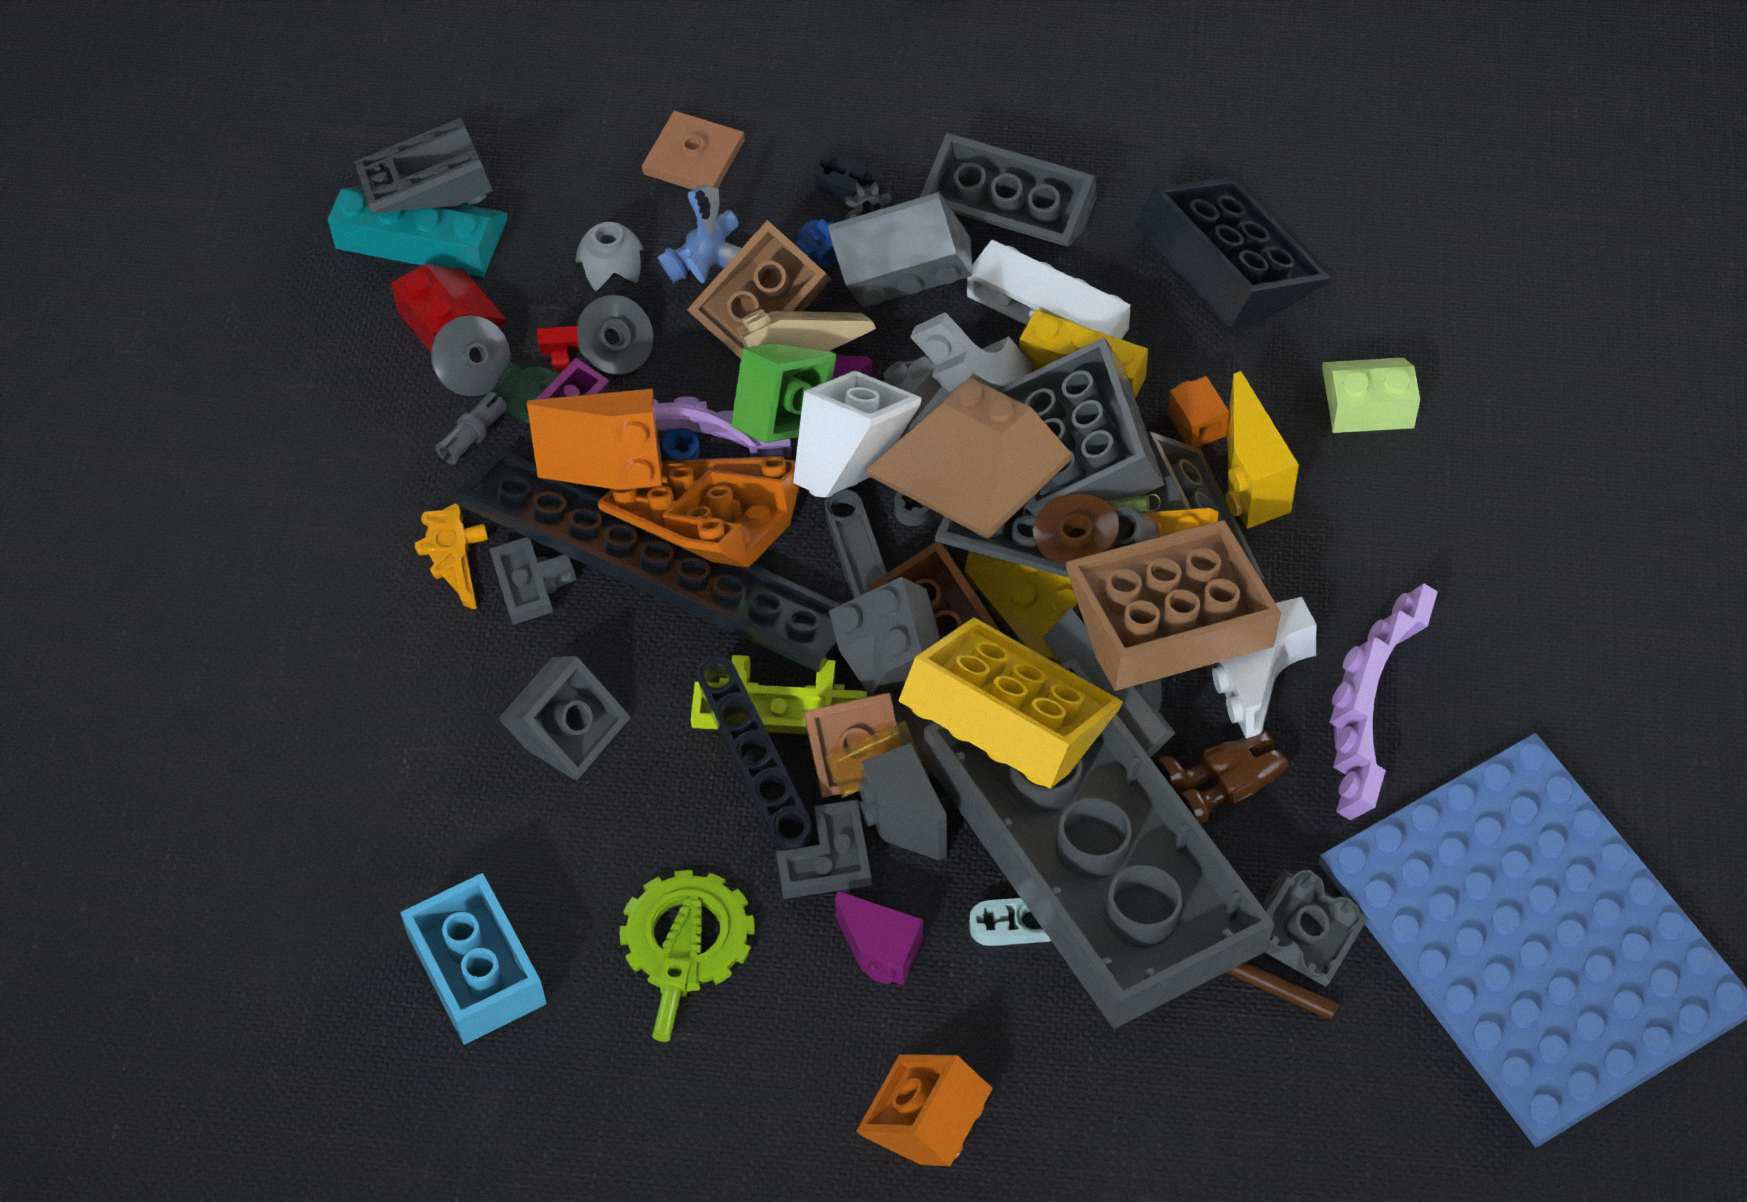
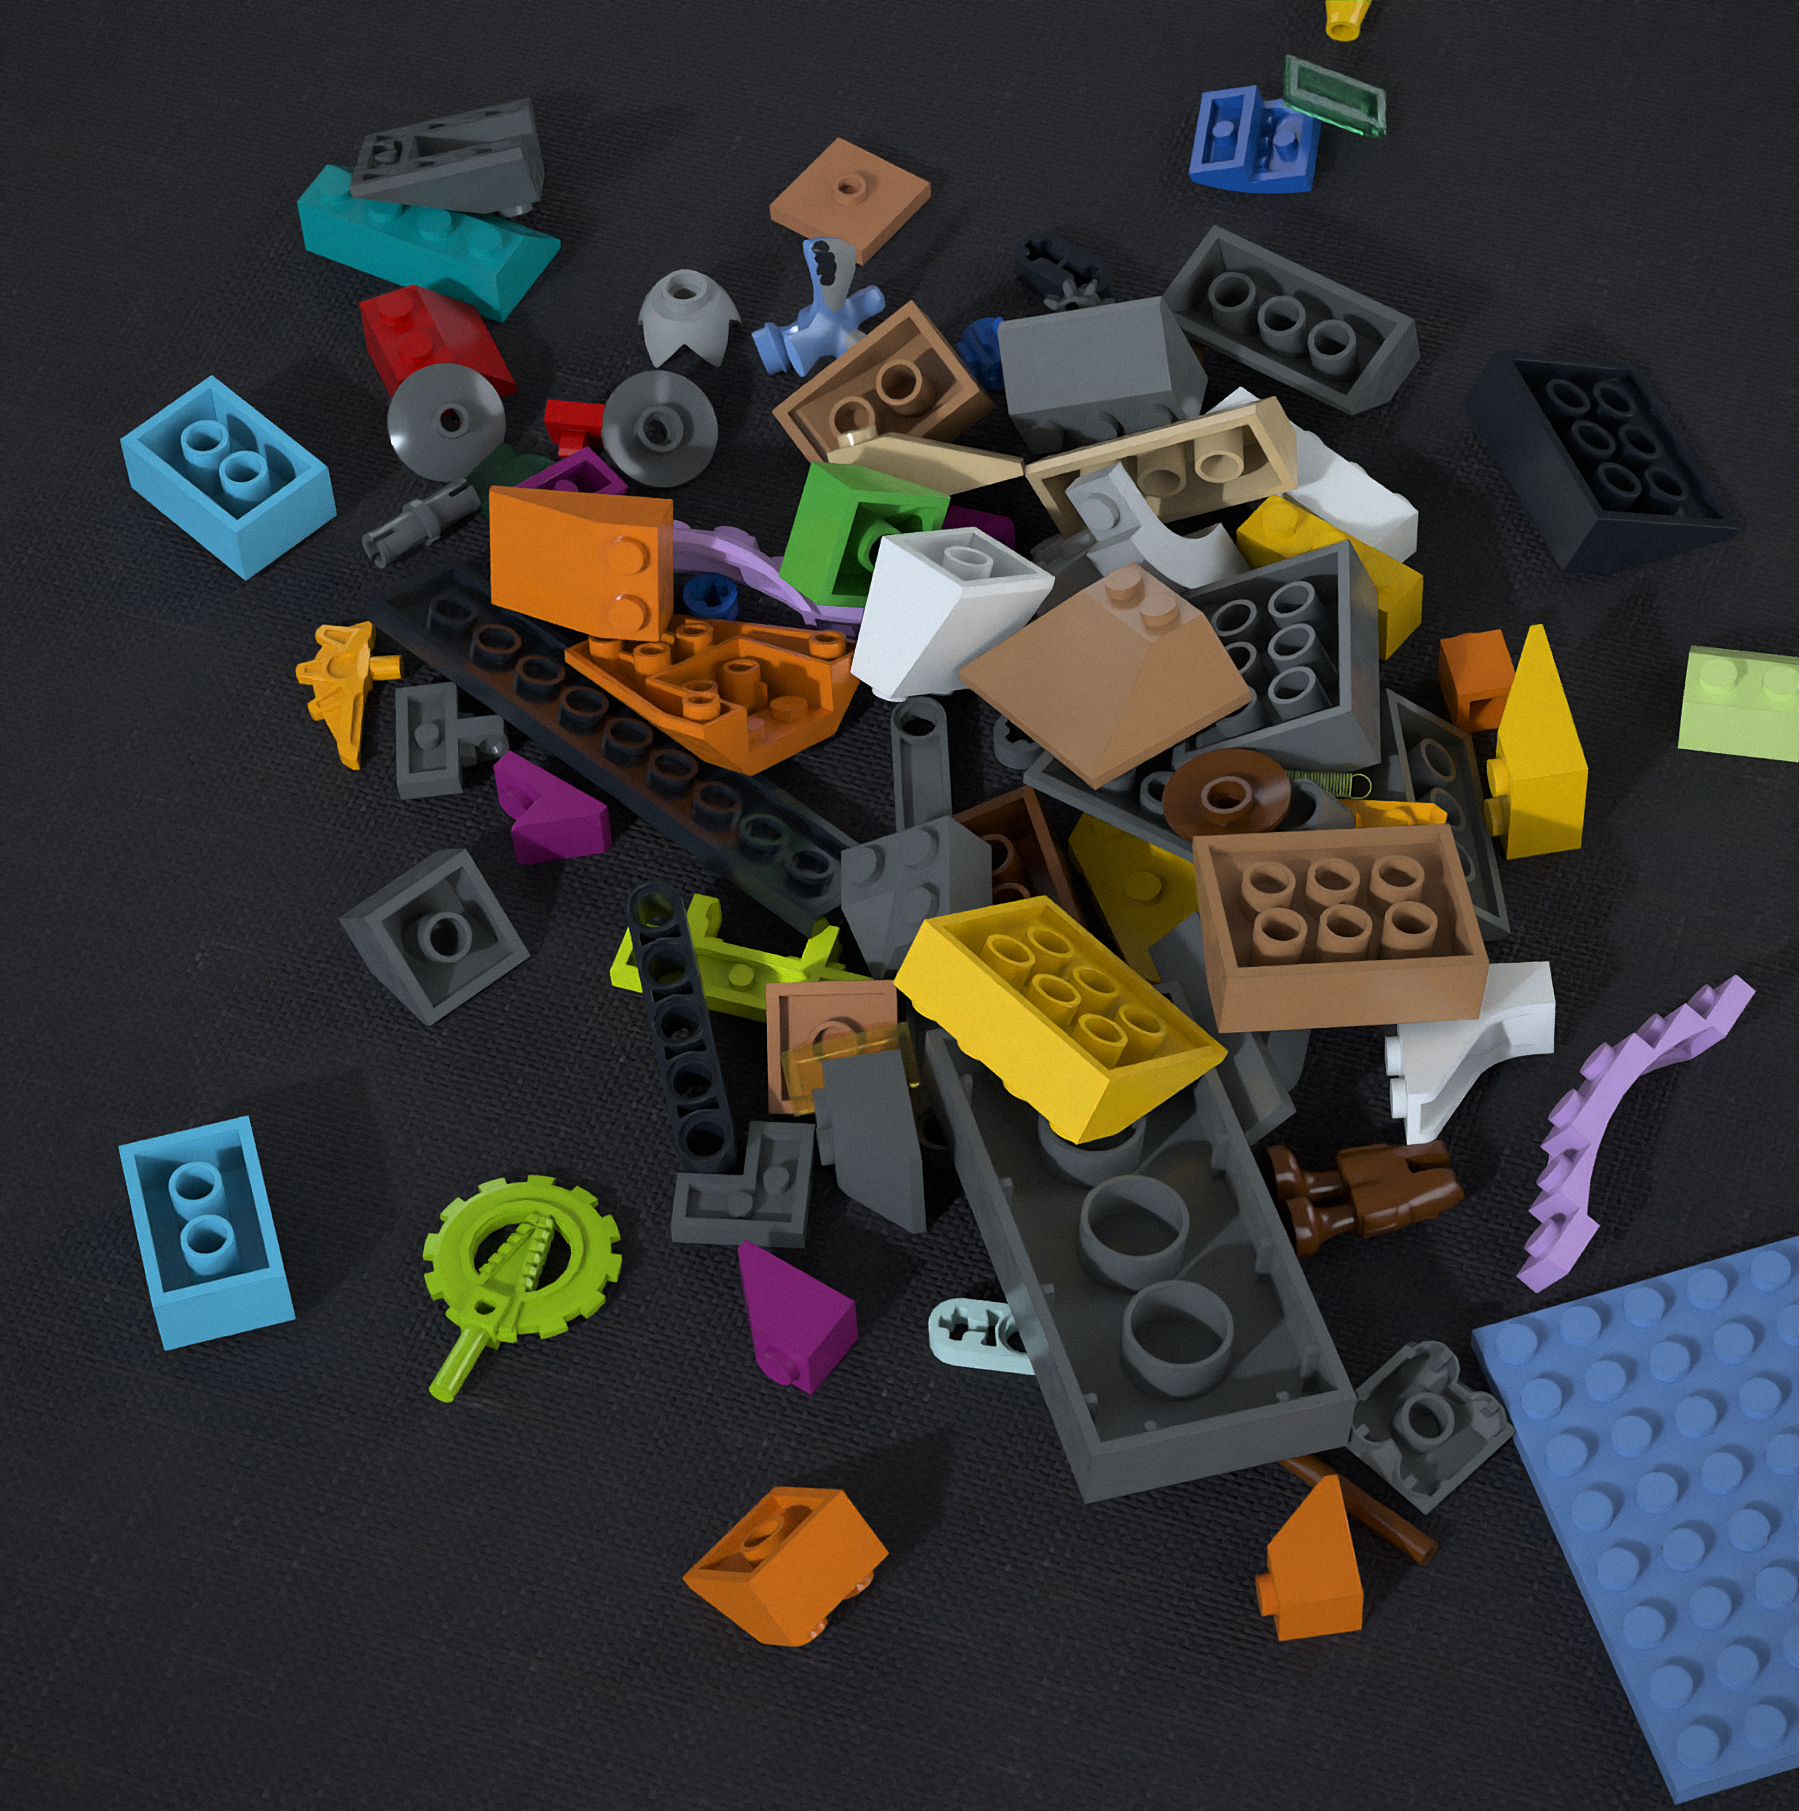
camera: 15 degrees right, 5 degrees down
(334, 421) = (229, 477): none -> medium azure brick
(623, 617) = (550, 814): none -> magenta slope
(947, 68) = (1253, 144): none -> blue slope
(975, 301) = (1183, 465): none -> tan slope
(991, 30) = (1334, 98): none -> clear green tile
(1268, 1040) = (1313, 1570): none -> orange slope

